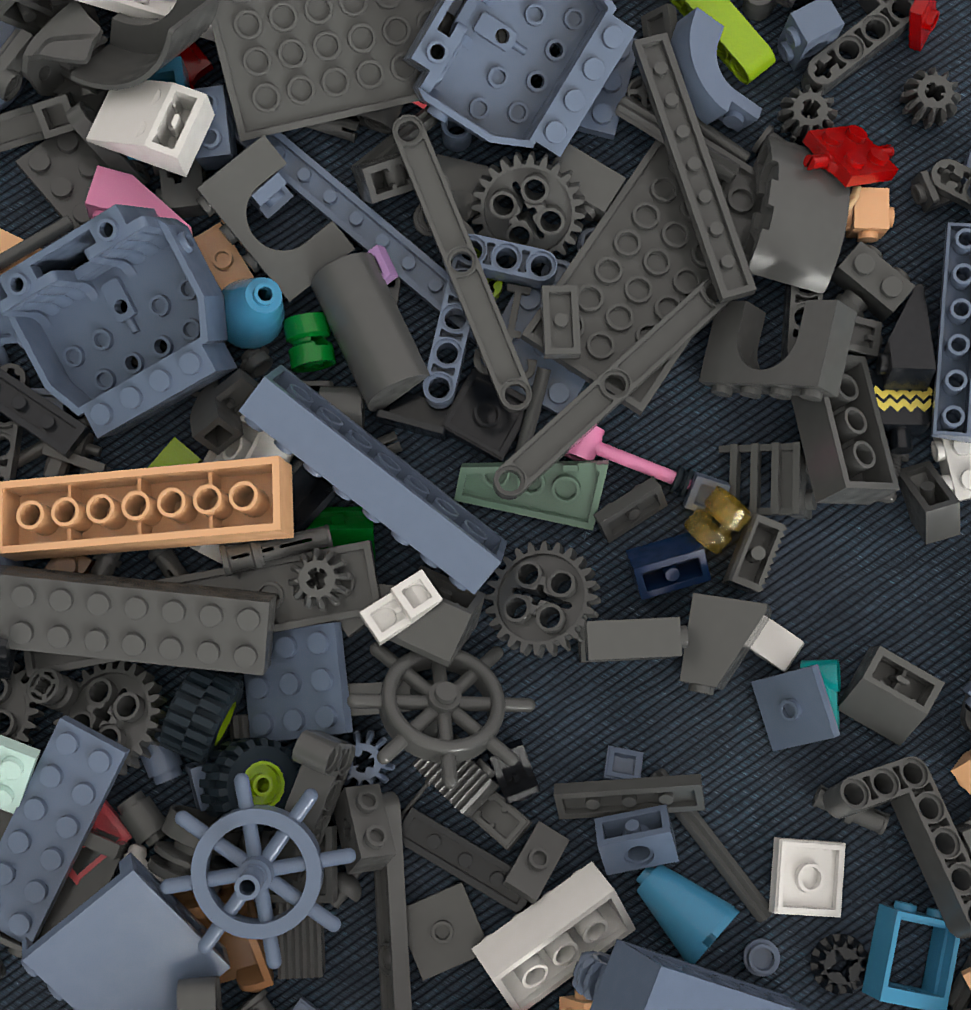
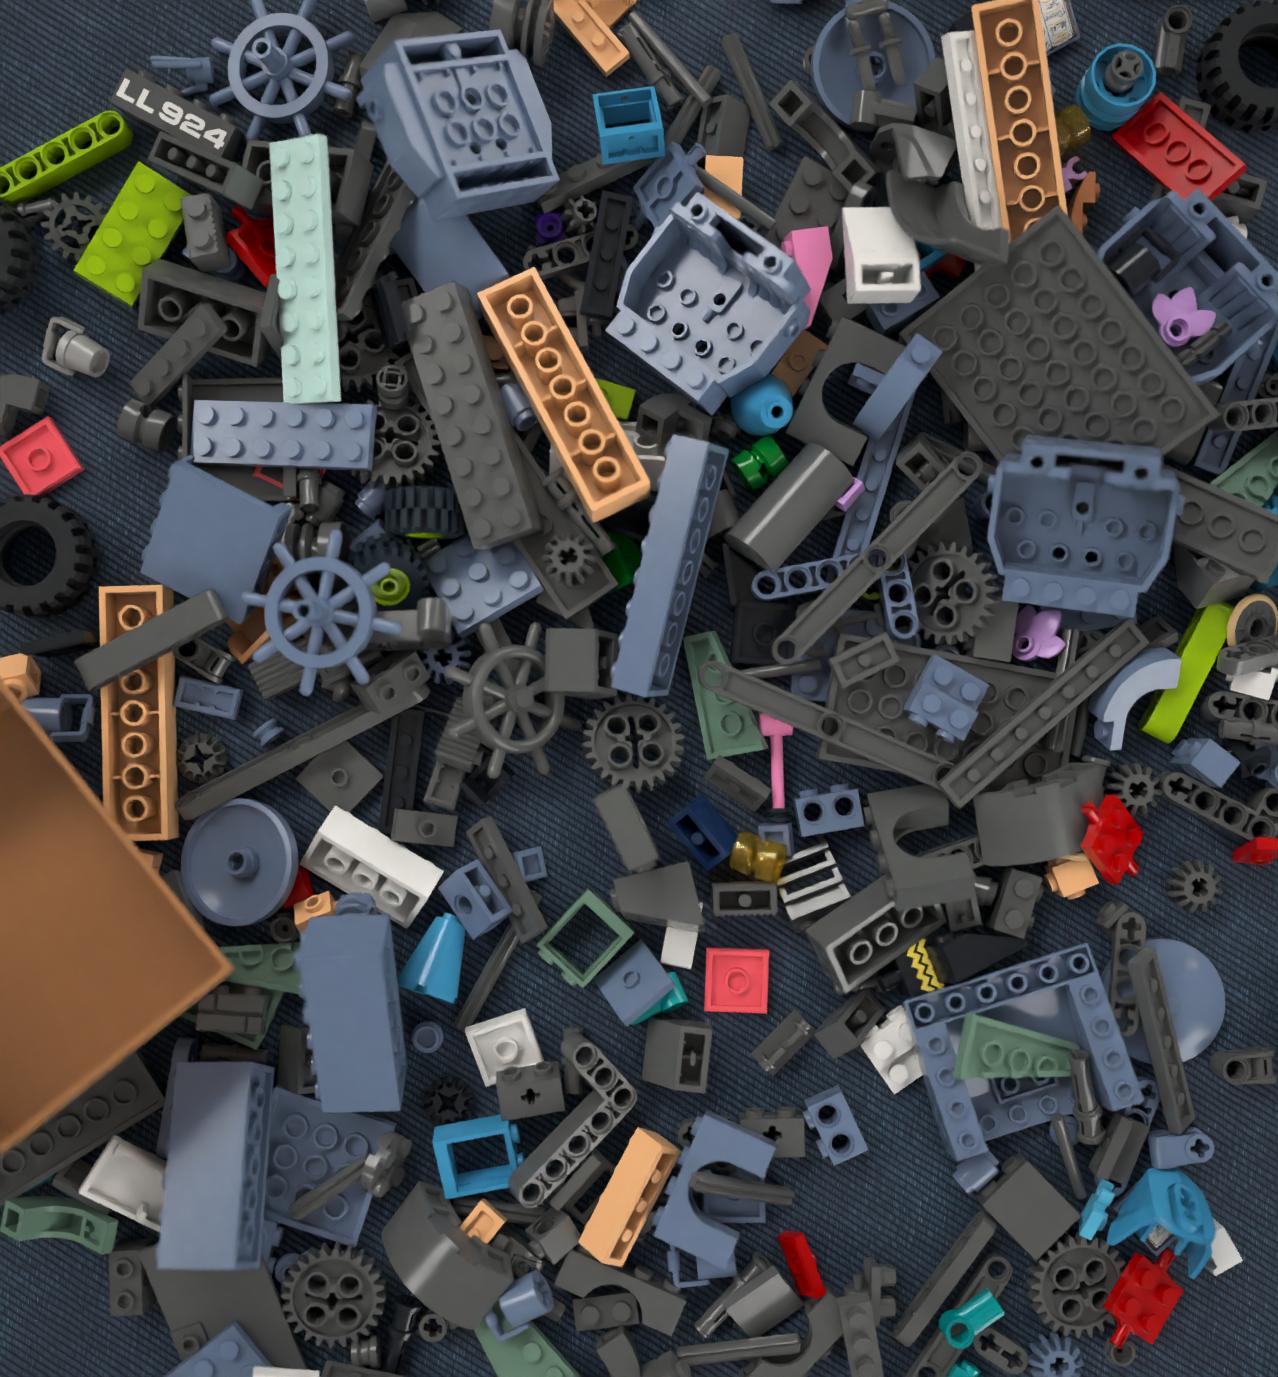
camera: 65 degrees right, 5 degrees up
(111, 824) = (309, 483): none -> dark grey pin
(135, 564) = (518, 407): none -> sand blue brick
(296, 167) = (897, 387): none -> sand blue arch
(360, 988) = (268, 732): none -> sand blue bush
(401, 607) = (575, 633): white slope -> none
(609, 136) = (1040, 632): none -> lavender plate
(637, 258) = (945, 699): none -> sand blue plate
(707, 432) = (828, 818): none -> sand blue brick
(755, 771) = (571, 972): none -> sand green window
(835, 600) = (736, 980): none -> coral tile
(865, 870) = (530, 1090): none -> dark grey brick
(921, 579) = (783, 1042): none -> dark grey hinge

